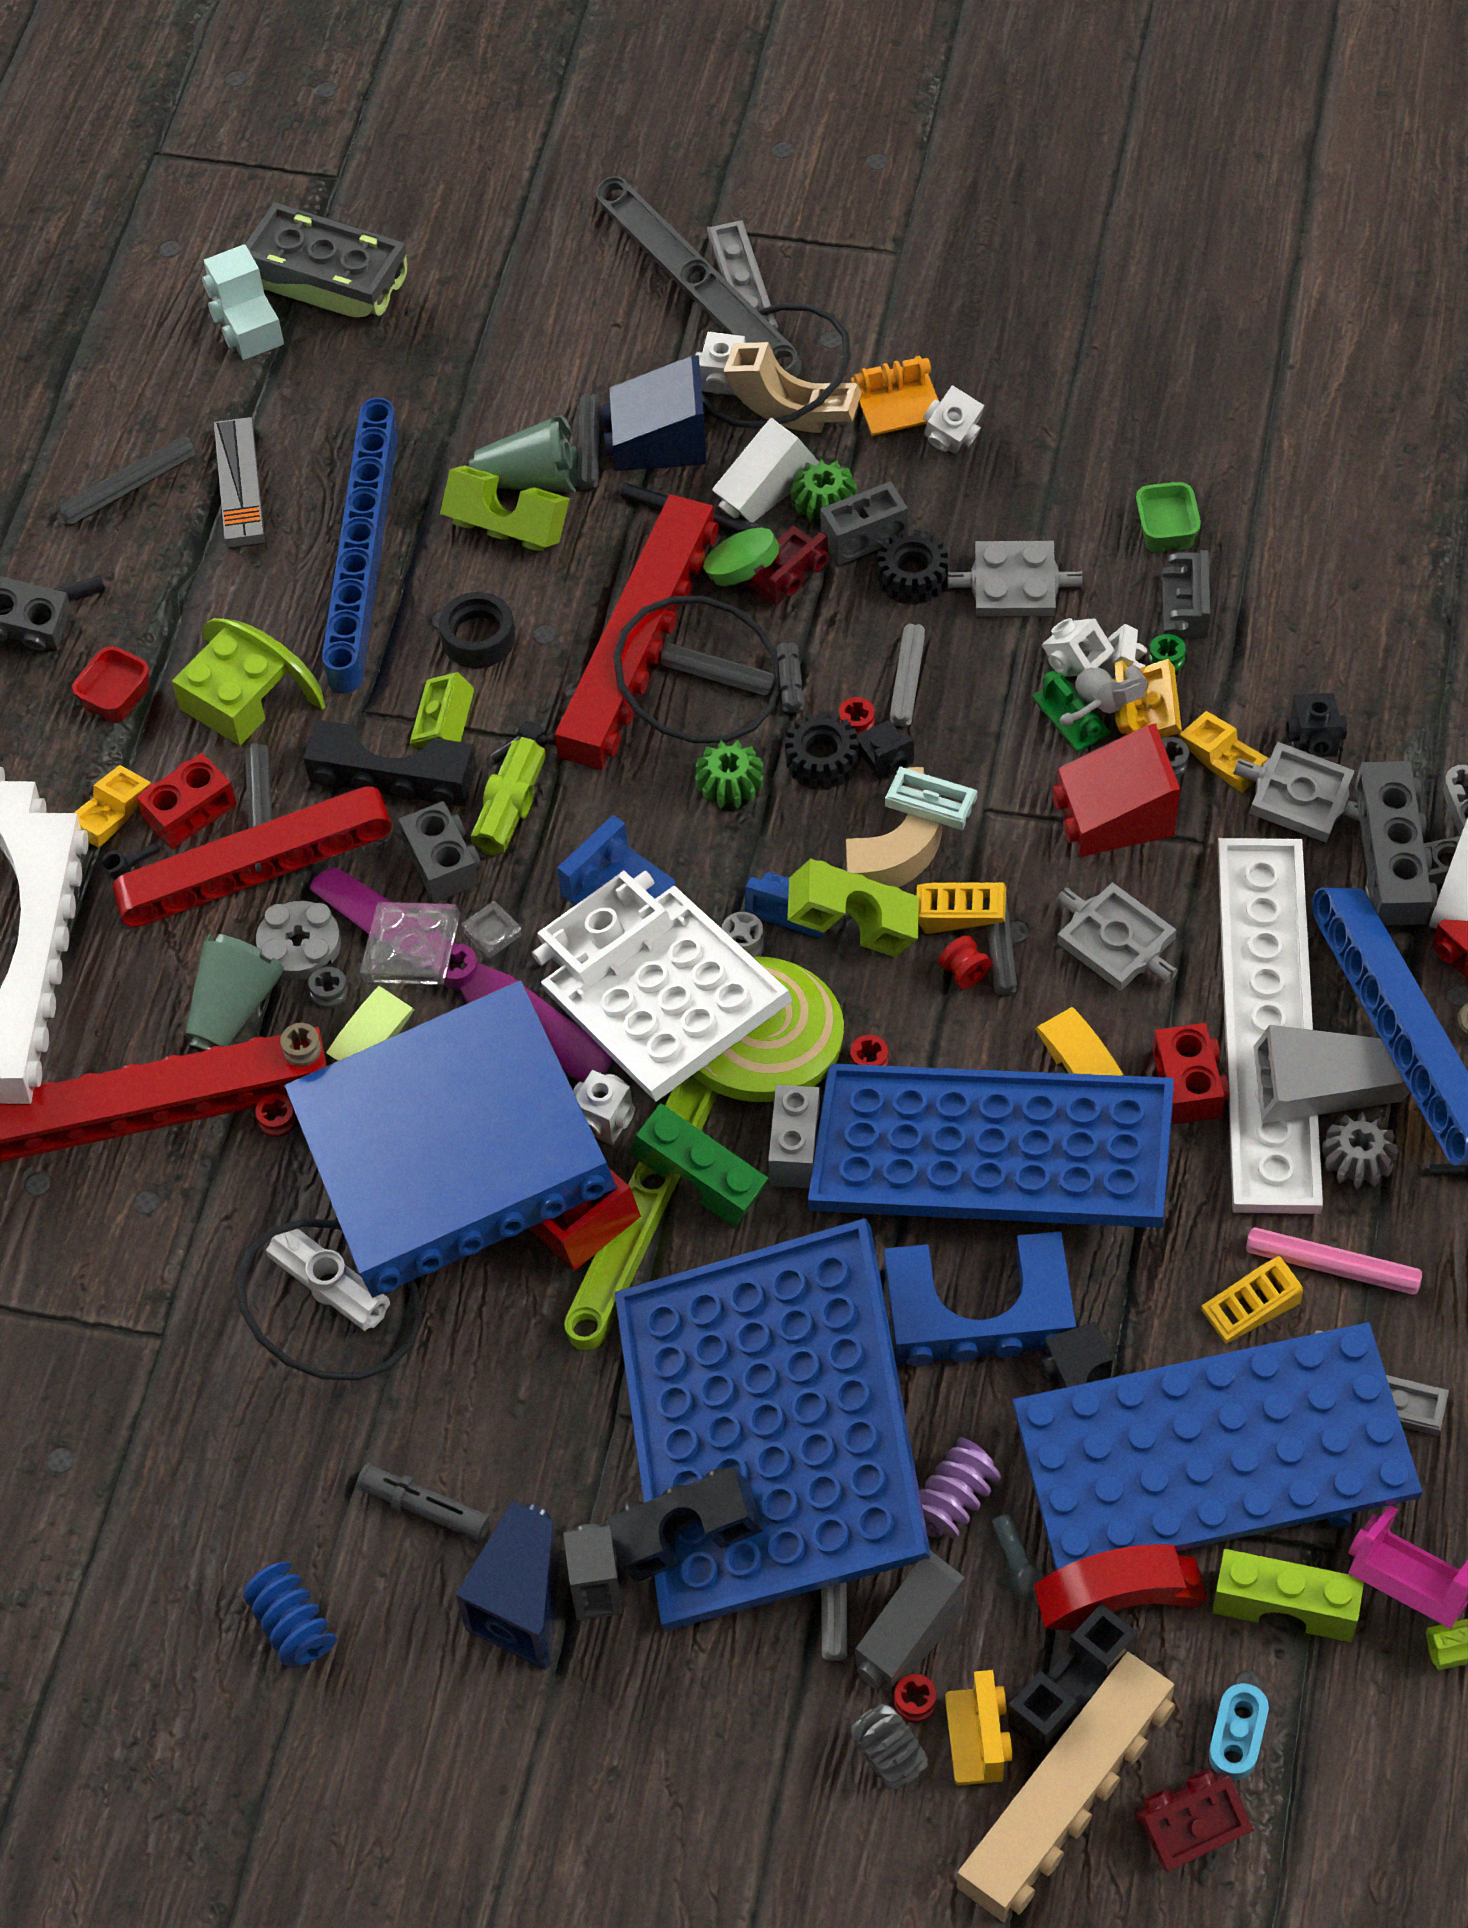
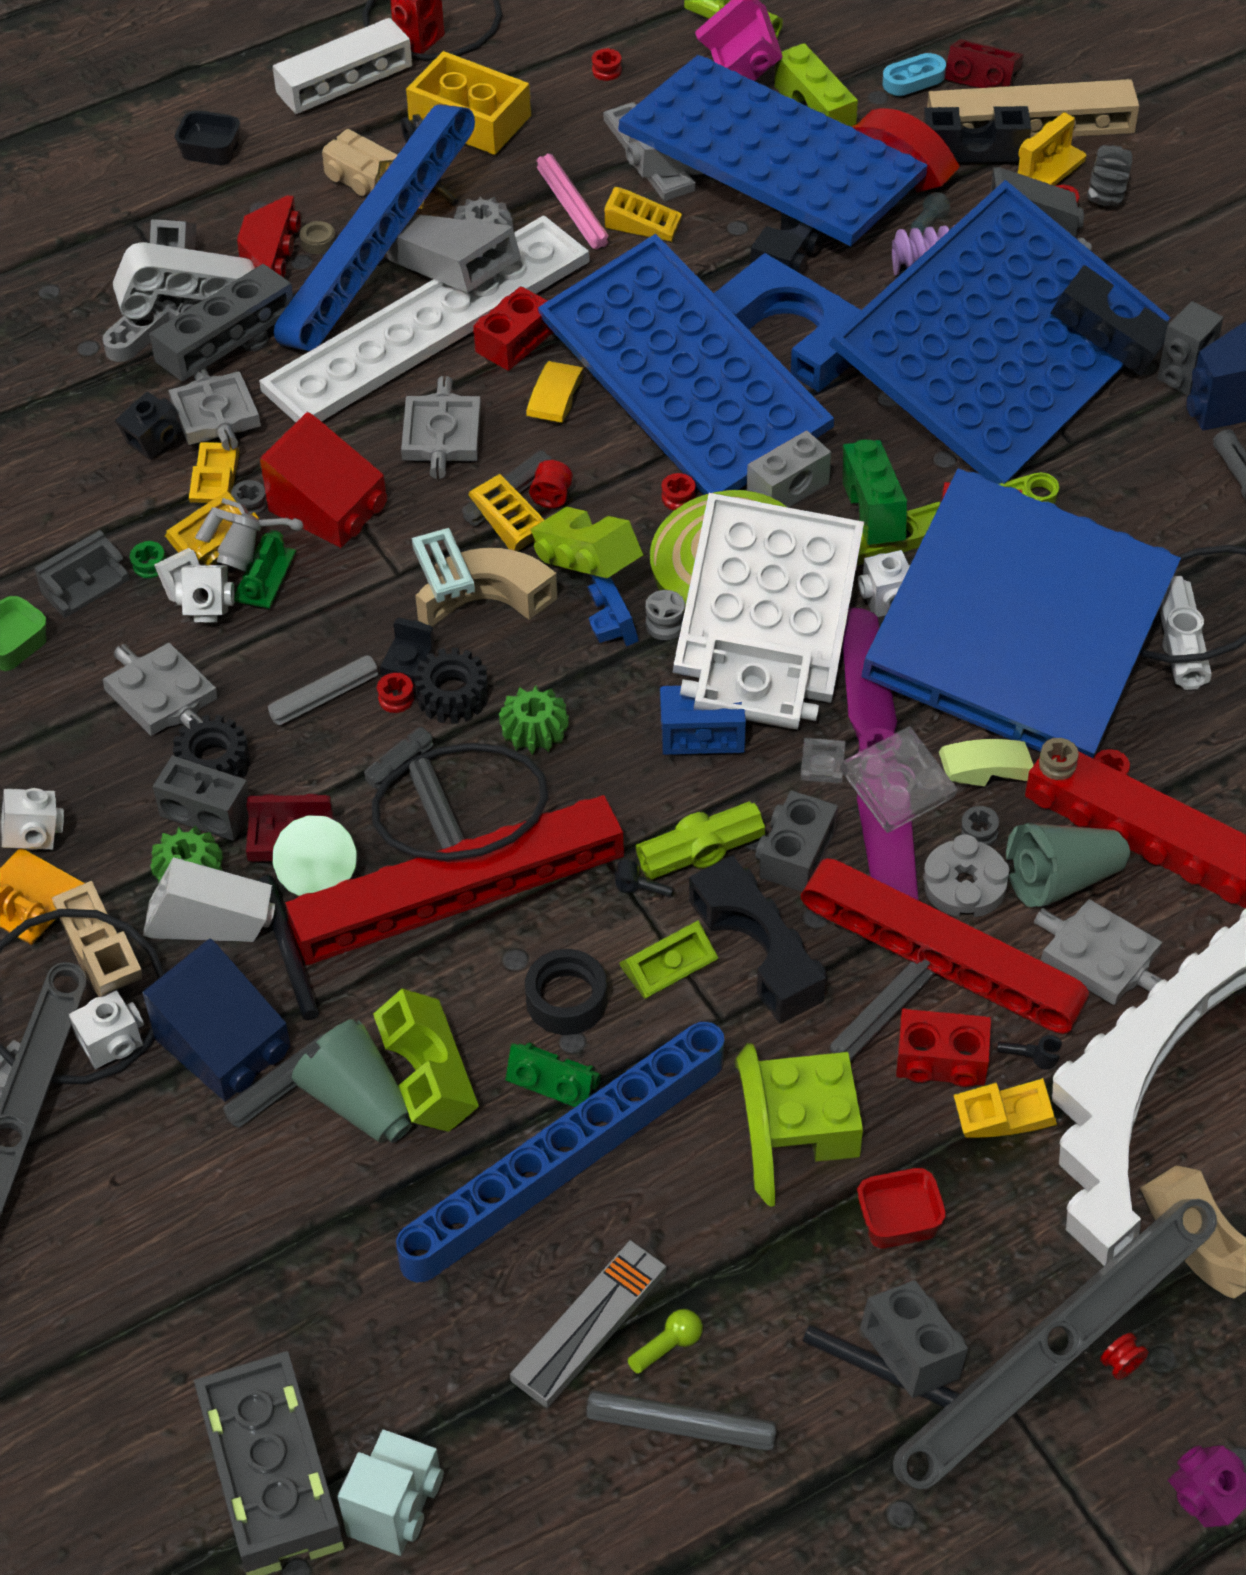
camera: 135 degrees left, 5 degrees down
(143, 966) = (1100, 950): none -> light grey plate
(182, 526) = (681, 1329): none -> lime bar
(411, 582) = (548, 1076): none -> green hinge

